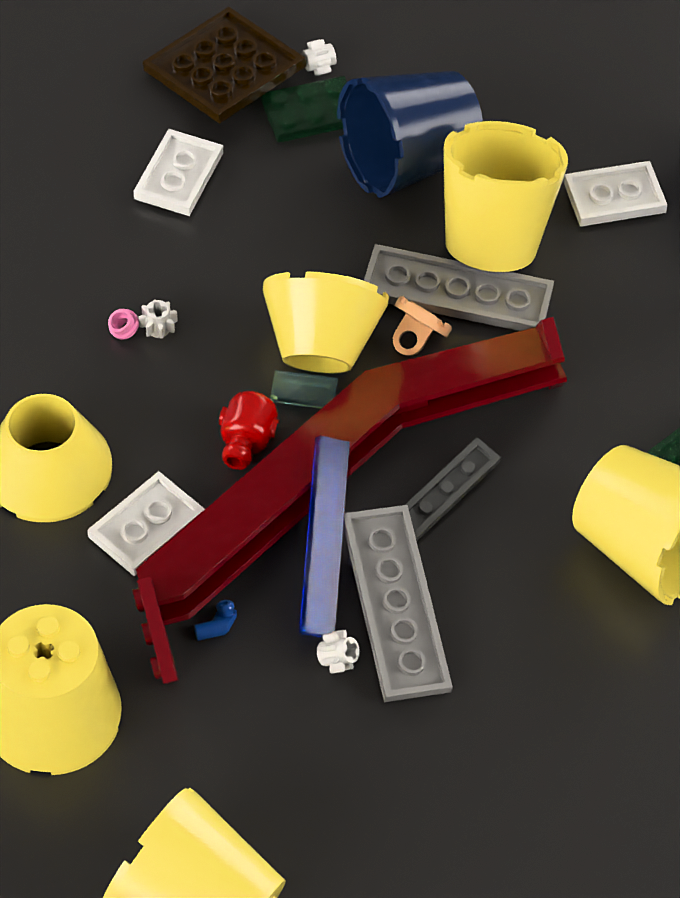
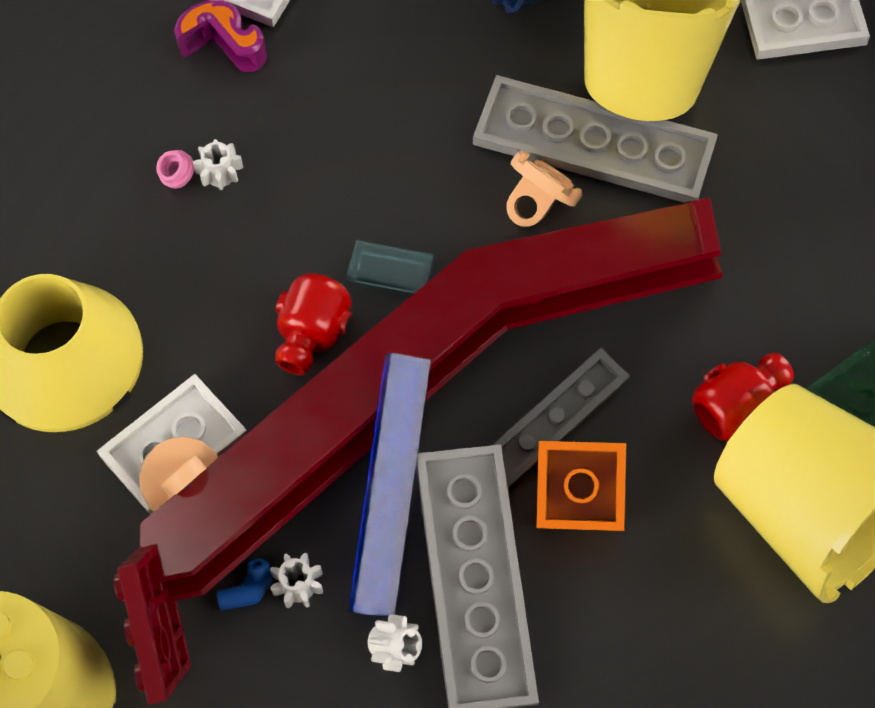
camera: 10 degrees right, 10 degrees up
(150, 215) = (222, 23): none -> magenta animal
(151, 534) = (172, 467): none -> light nougat tile
(256, 613) = (291, 570): none -> white gear
(322, 319) = (416, 182): light yellow cone -> none
(472, 532) = (581, 485): none -> orange brick
(577, 461) = (736, 391): none -> red piece

